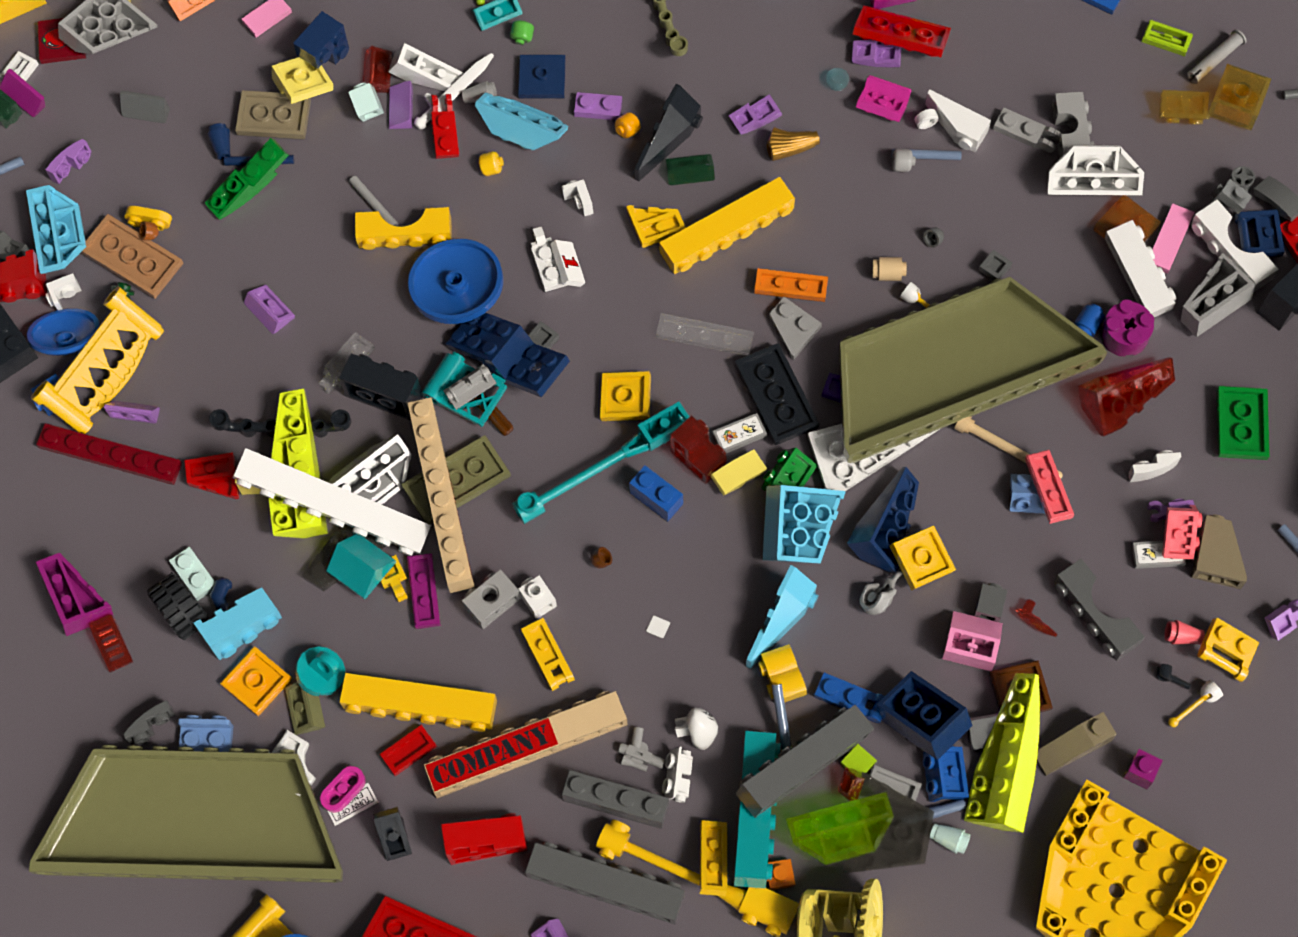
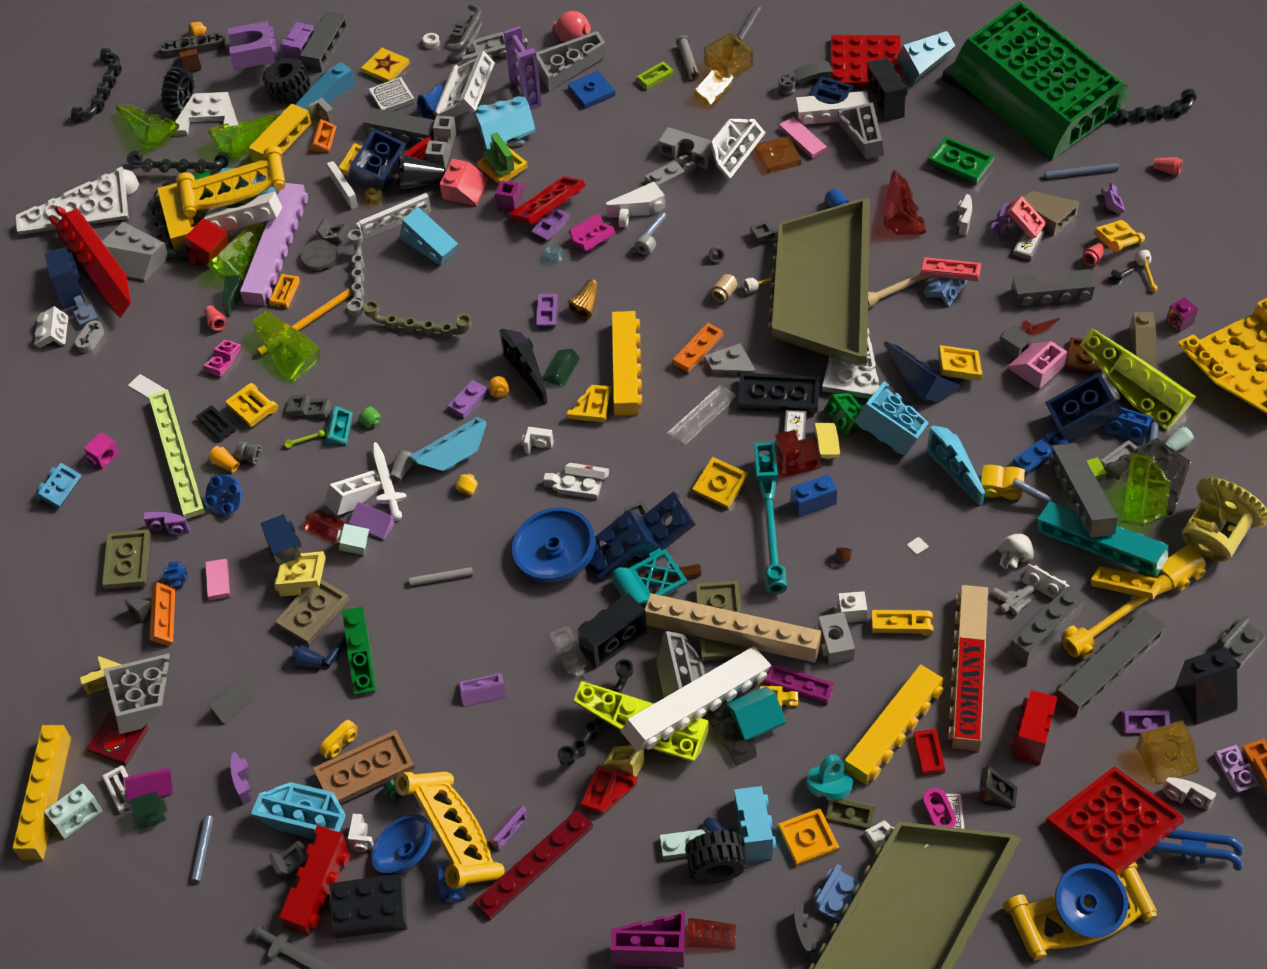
camera: 60 degrees left, 15 degrees down
(148, 230) = (351, 740): dark orange hinge -> none
(431, 228) = (469, 583): yellow arch -> none
(444, 129) = (413, 499): red hinge -> none
(470, 386) = (652, 570): light grey hinge -> none
(542, 76) = (416, 422): dark blue plate -> none
(832, 388) = (795, 358): dark purple tile -> none
(851, 784) = (1110, 477): clear red tile -> none
(876, 599) = (976, 400): light grey piece -> none
(1127, 328) = (857, 181): magenta brick -> none
(1139, 268) = (819, 158): white brick -> none
(1231, 195) = (795, 90): dark grey bracket -> none

